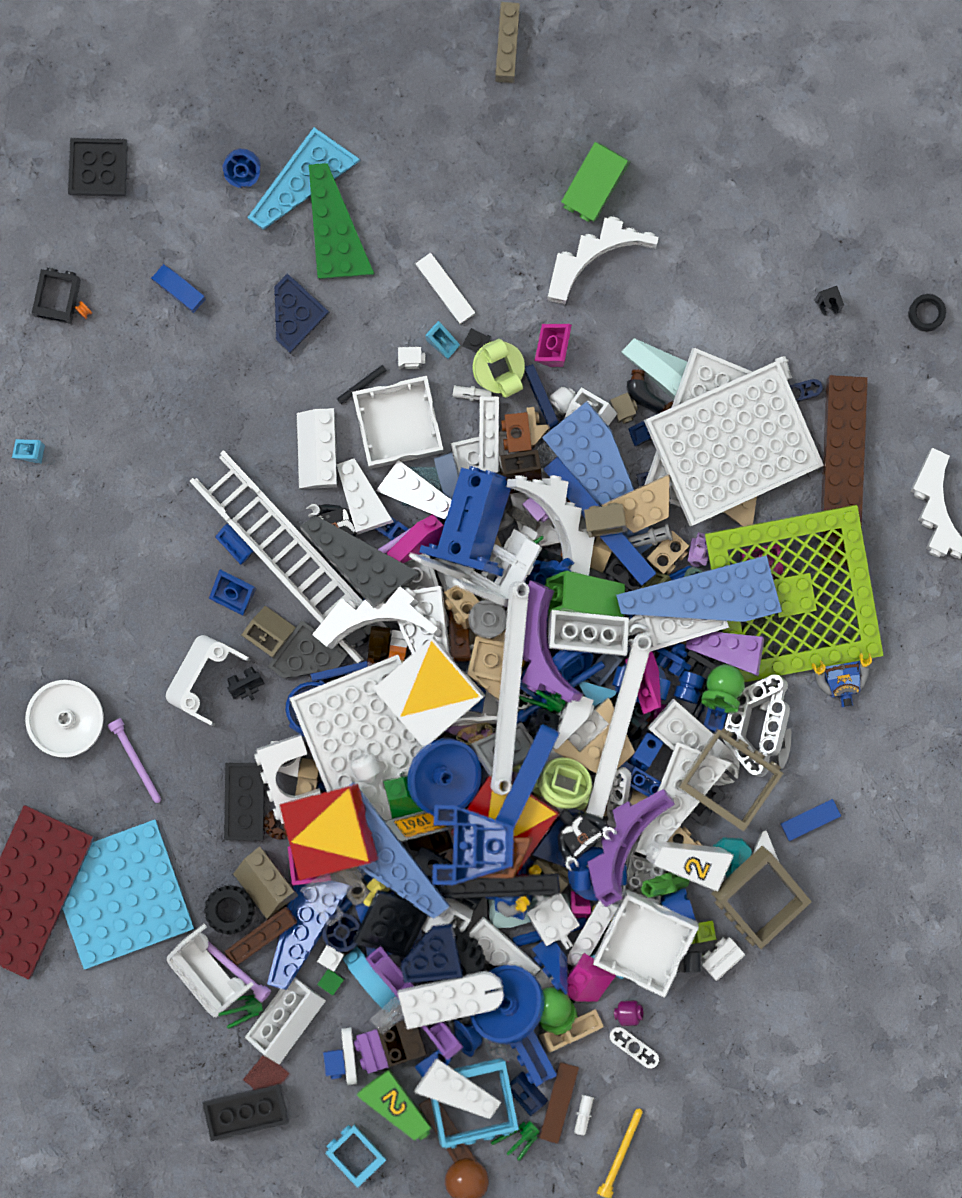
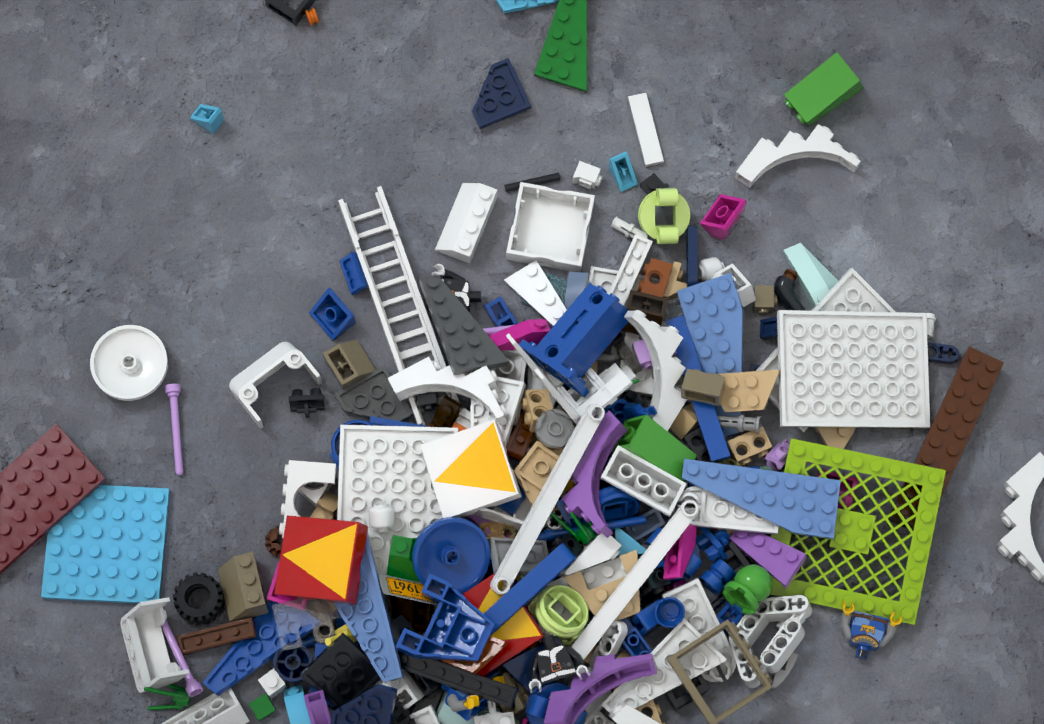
camera: 25 degrees right, 10 degrees down
(178, 288) = (405, 33): blue slope -> none
(244, 802) = (256, 507): black plate -> none
(363, 502) = (487, 281): white wing -> none
(662, 743) = (669, 612): none -> blue hair
(831, 299) = (997, 277): black hinge -> none

